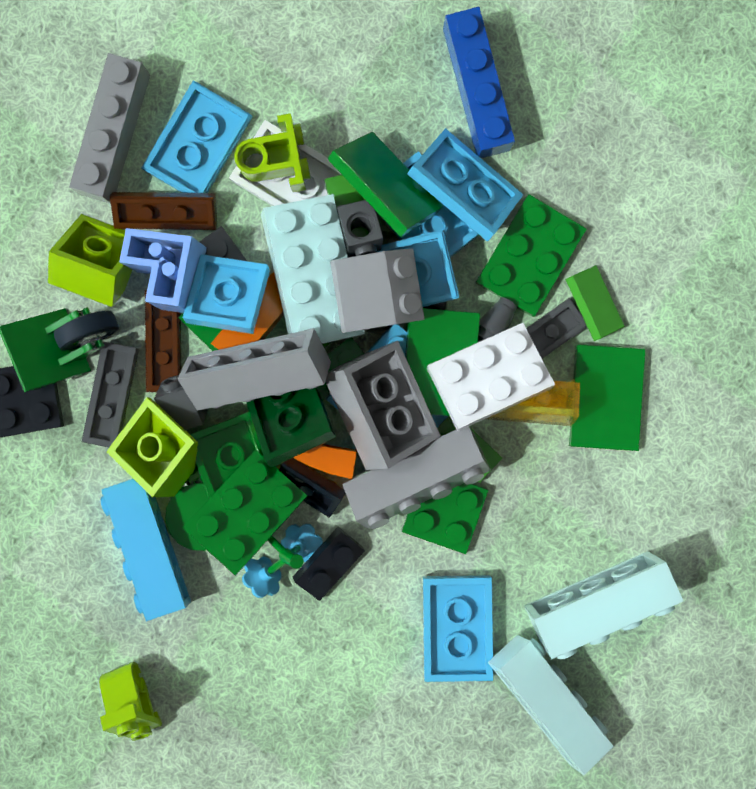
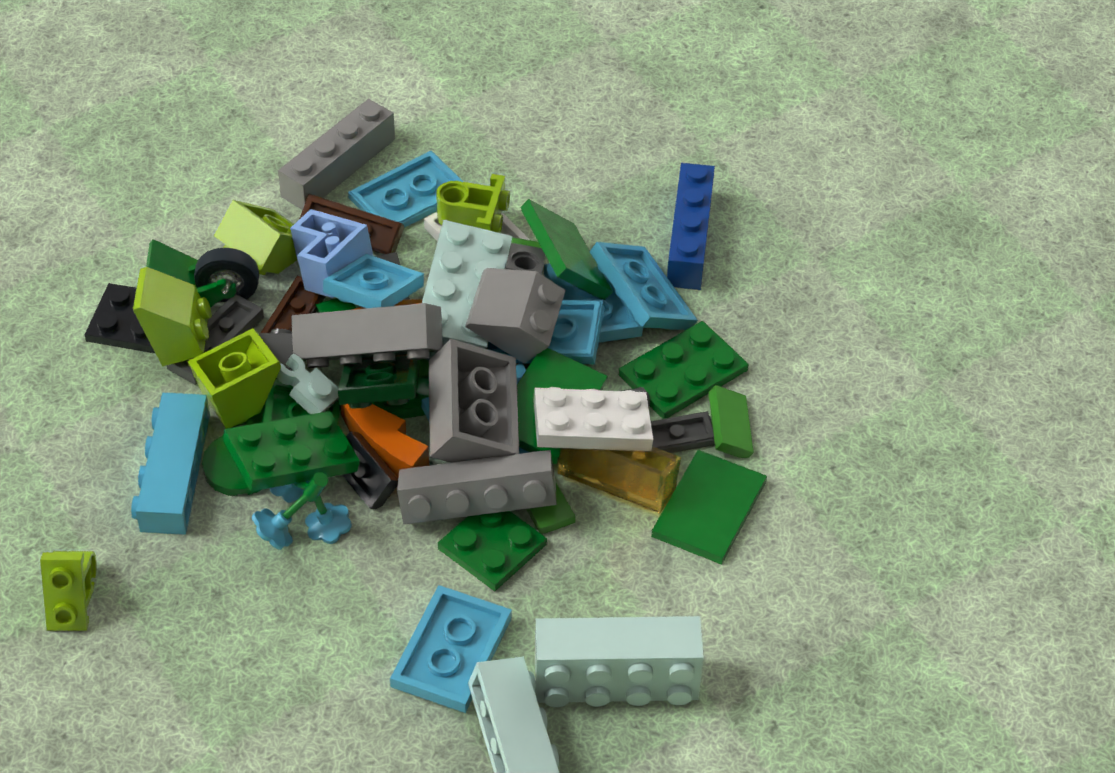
camera: 20 degrees right, 40 degrees down
(64, 411) = (171, 316): none -> lime slope
(229, 434) = (310, 390): none -> light aqua plate
(328, 563) = (346, 543): black plate -> none

